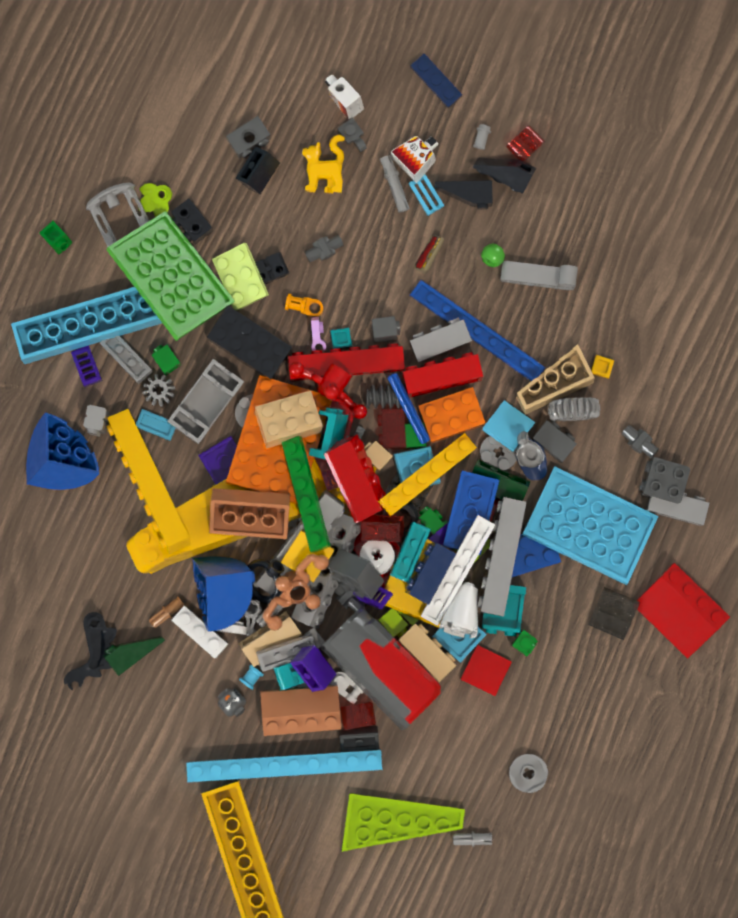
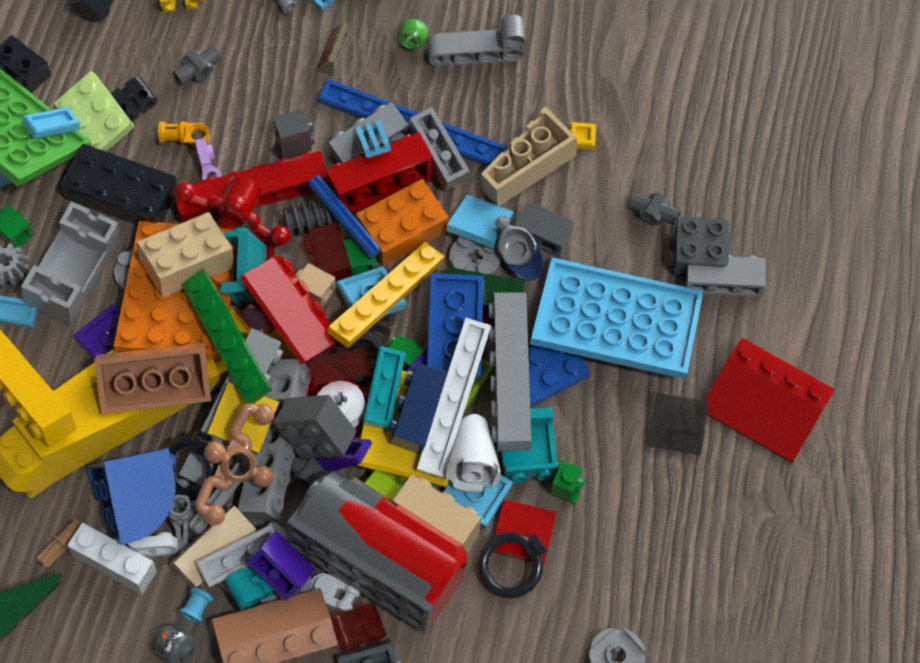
camera: 10 degrees left, 20 degrees down
(207, 284) = (50, 122): none -> medium azure tile
(341, 338) = (238, 161): teal tile -> none
(442, 340) = (370, 131): none -> medium azure tile
(489, 686) = (533, 547): none -> black piece
(490, 363) = (447, 161): none -> light grey brick
(574, 409) = (560, 182): light grey gear -> none

